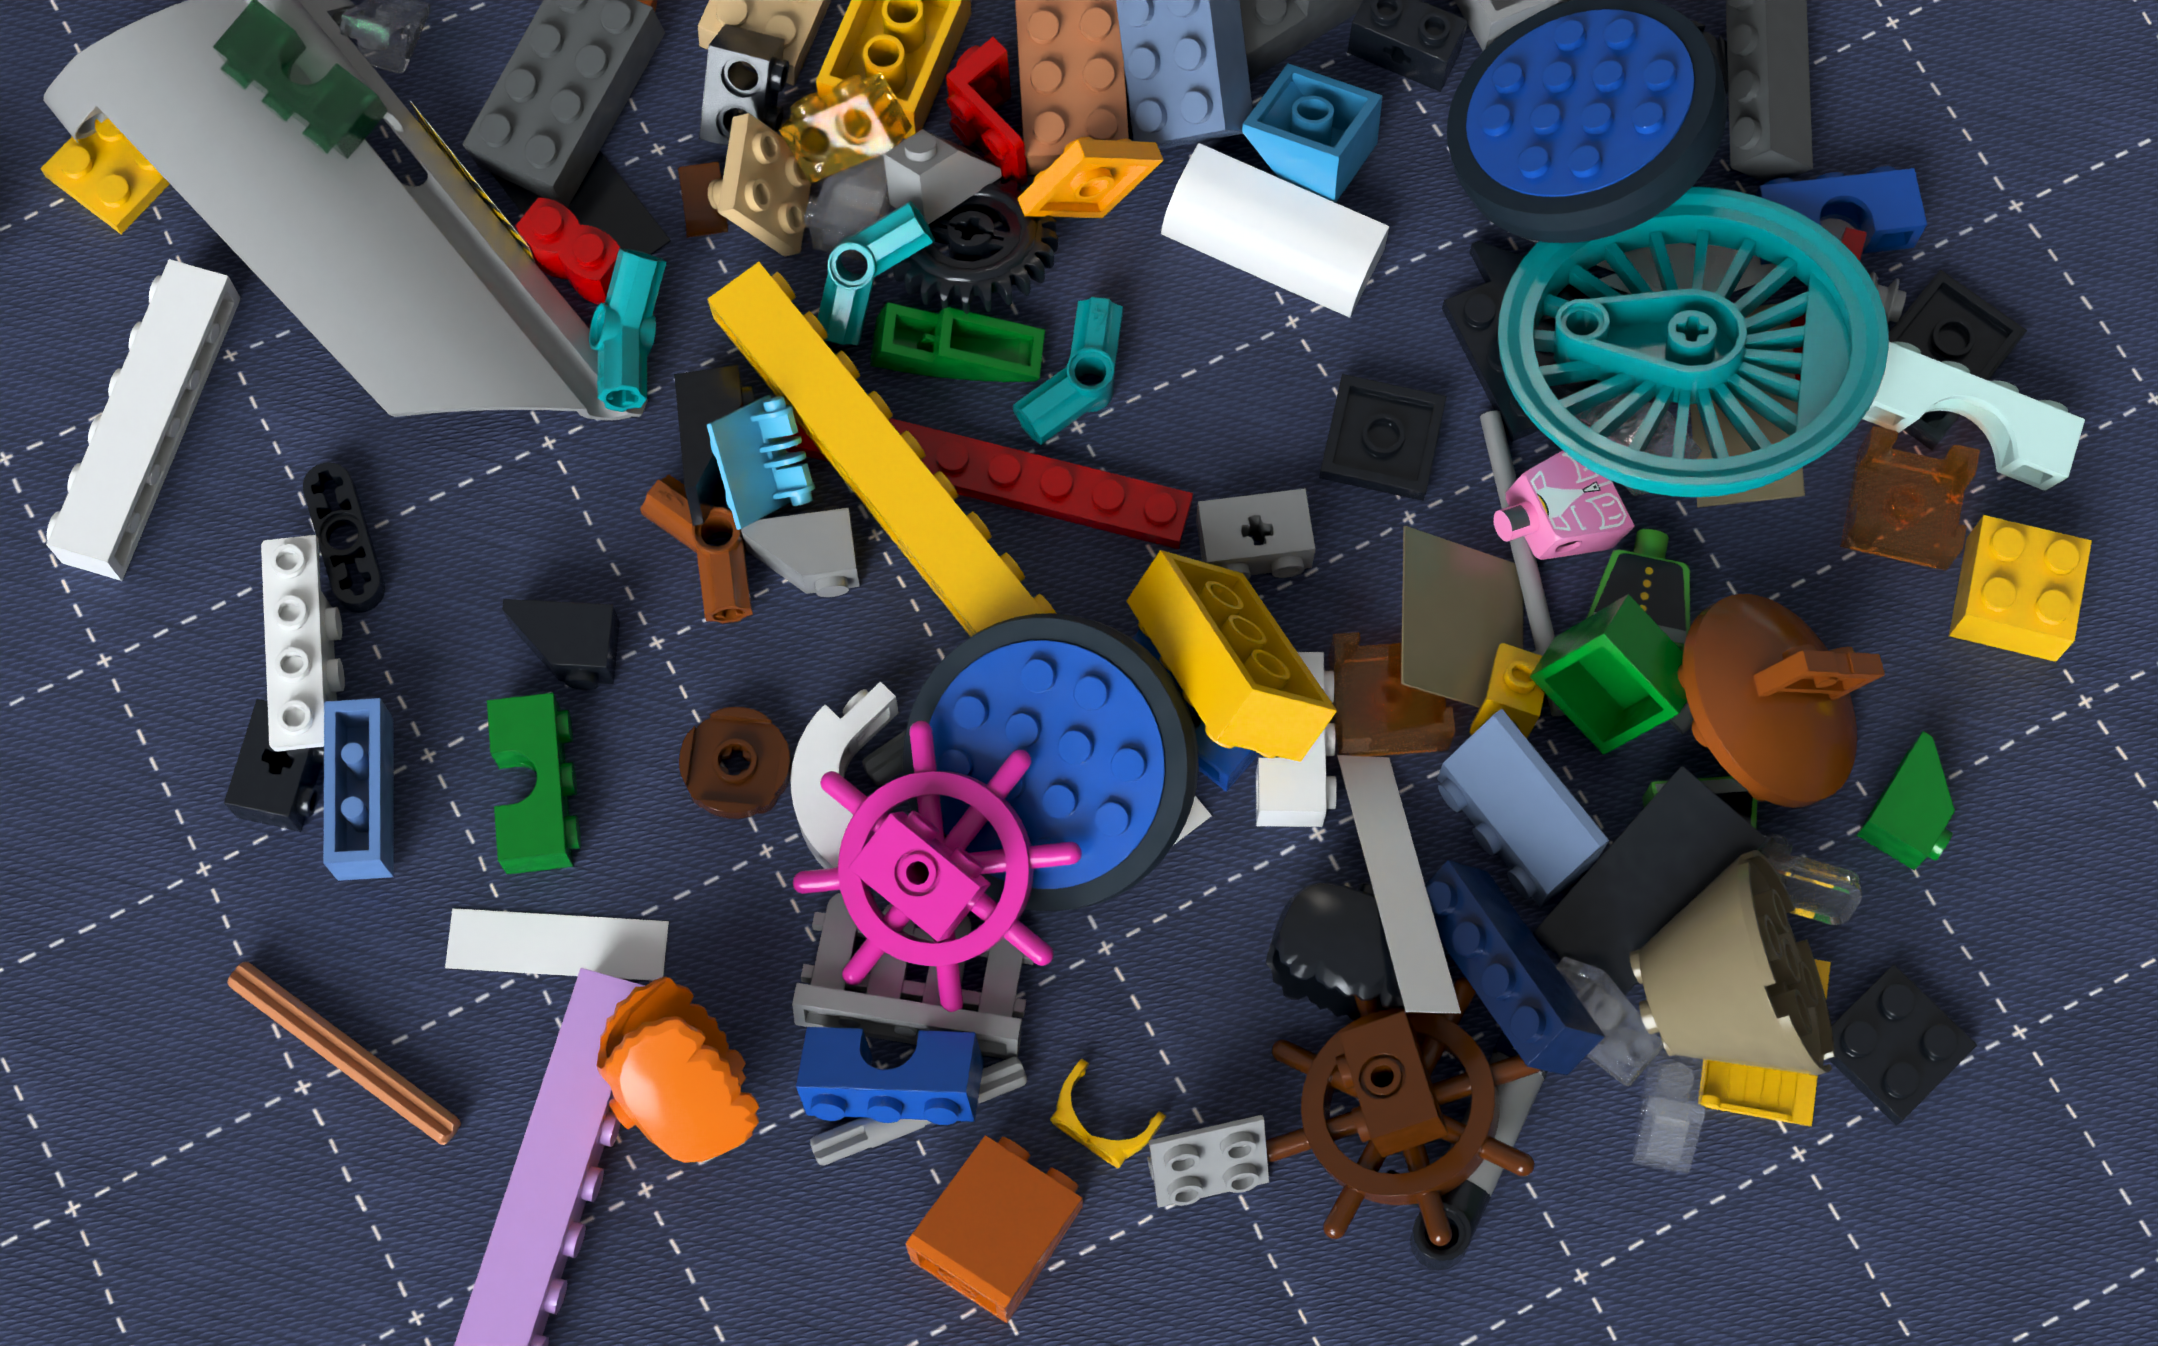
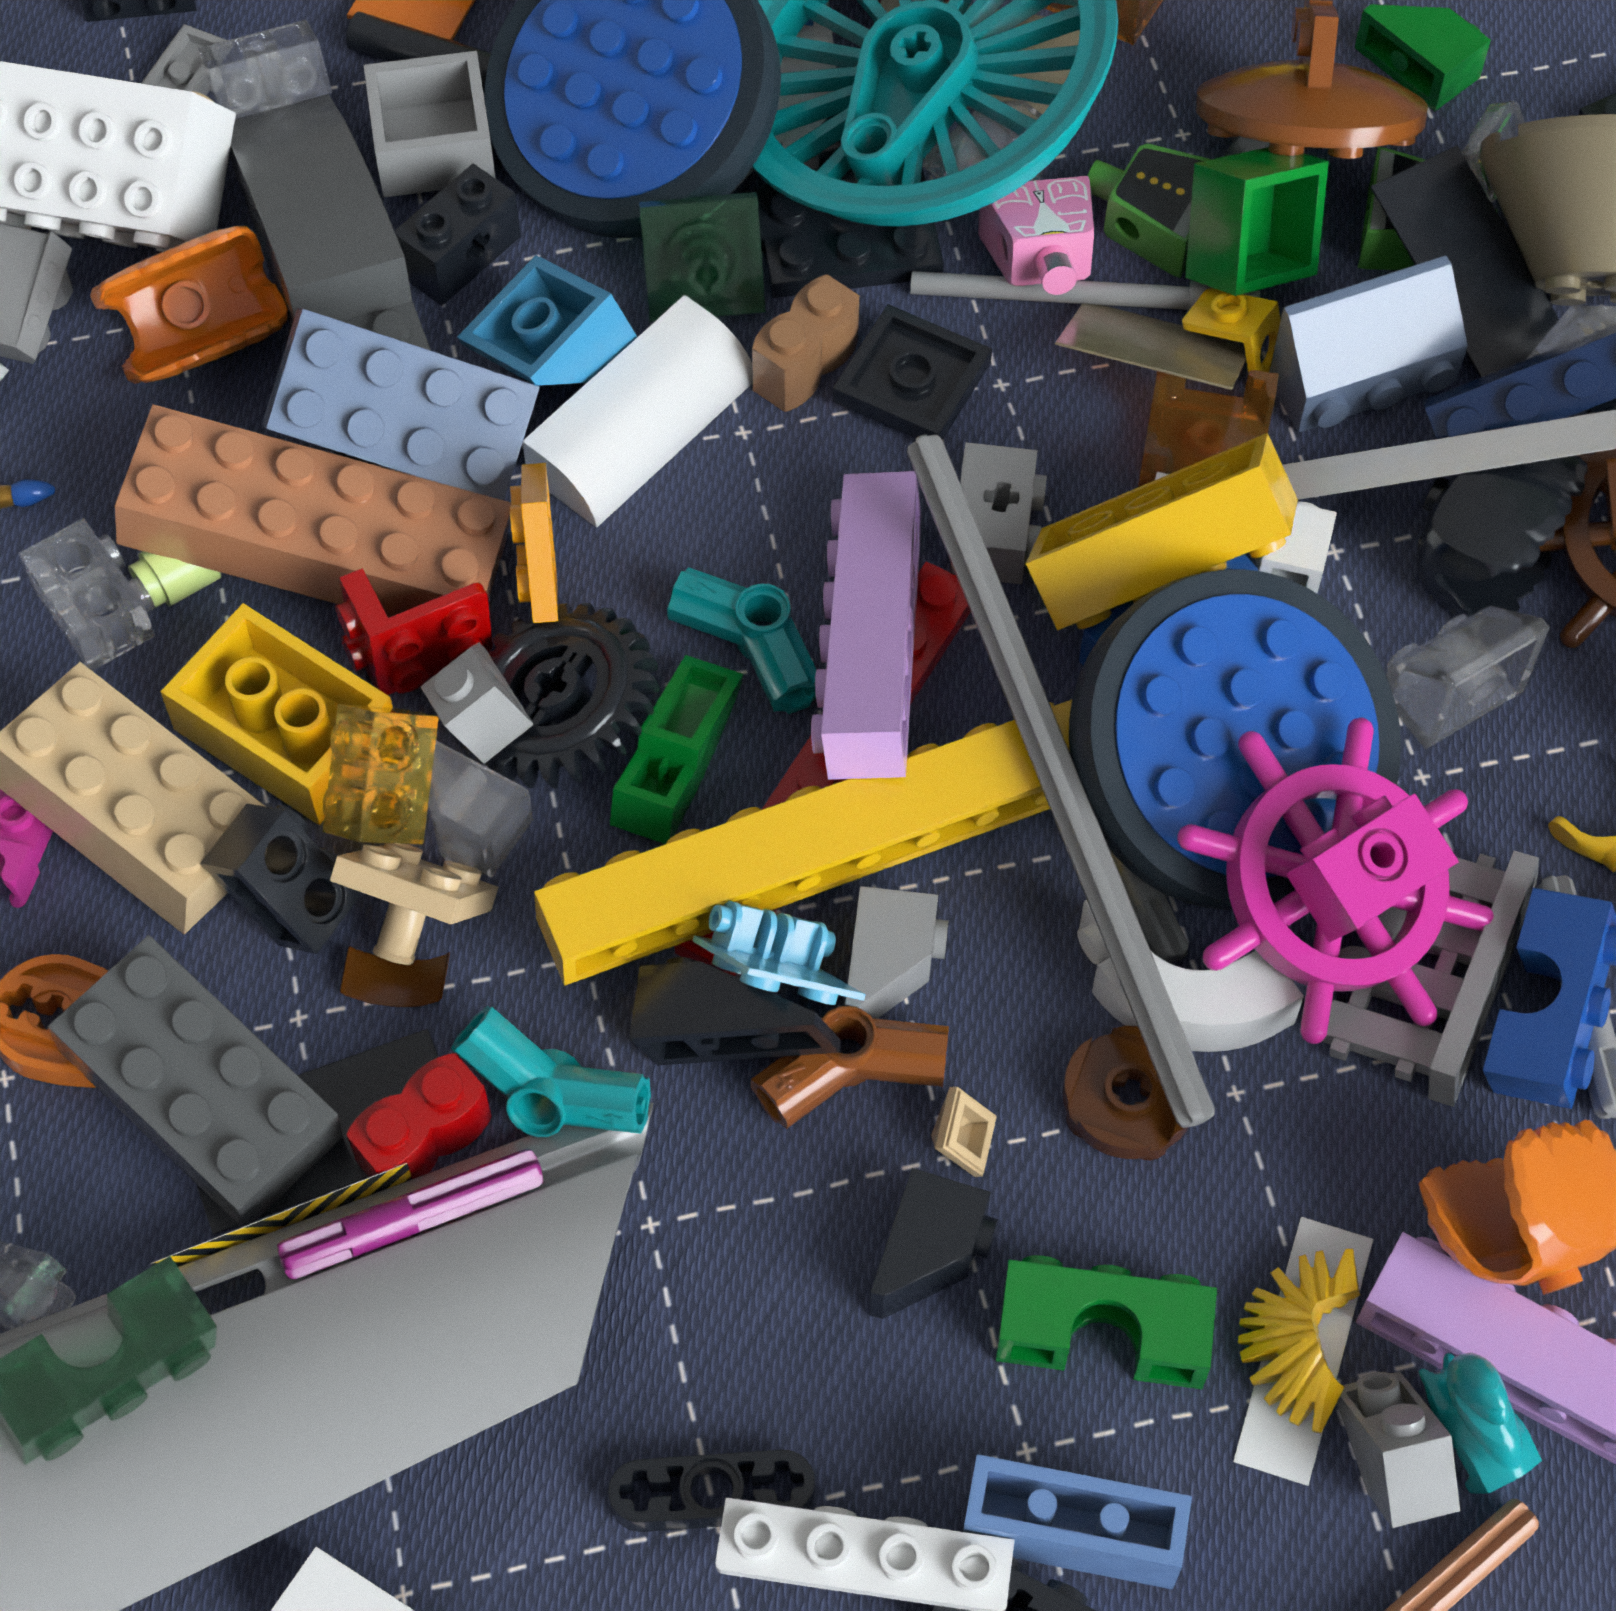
camera: 75 degrees left, 10 degrees down
(476, 1021) = (1399, 1449): none -> light grey slope
(491, 262) = (409, 1214): none -> axle
(500, 1075) = (1483, 1427): none -> teal animal
(555, 931) = (1289, 1336): none -> yellow hair
(669, 645) = (964, 1131): none -> tan slope
(883, 245) = (552, 769): teal piece -> none
(986, 611) = (1062, 786): none -> light grey axle
(1089, 452) = (871, 627): none -> lavender brick
(1199, 949) = (1464, 671): none -> clear slope
(1371, 336) = (805, 343): none -> medium nougat brick
(1437, 230) = (705, 252): none -> clear green plate

